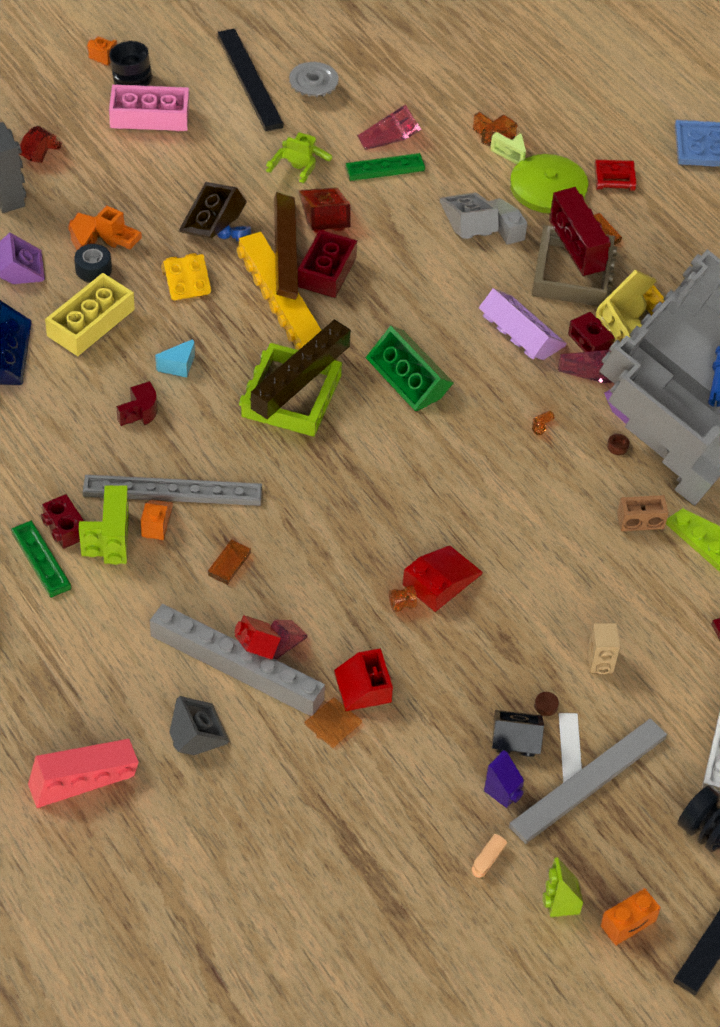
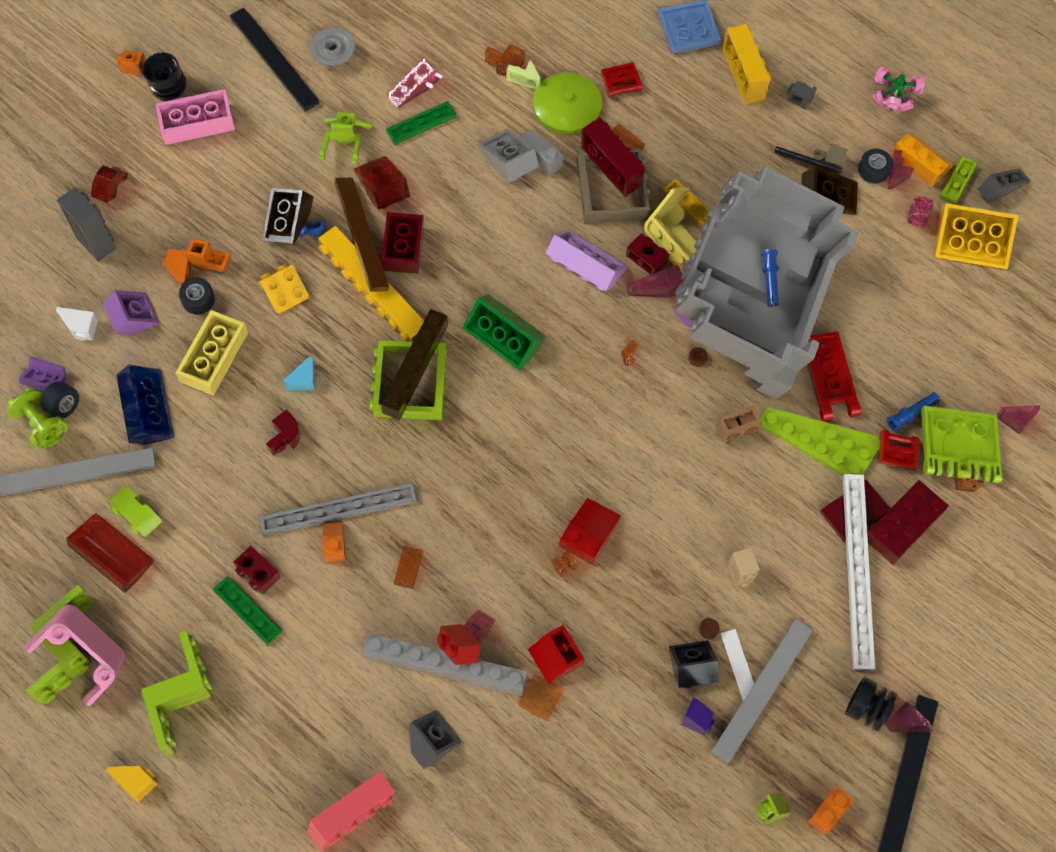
camera: 15 degrees left, 15 degrees up
(111, 535) = (304, 574): lime brick -> none
(488, 855) = (702, 786): light nougat bar -> none

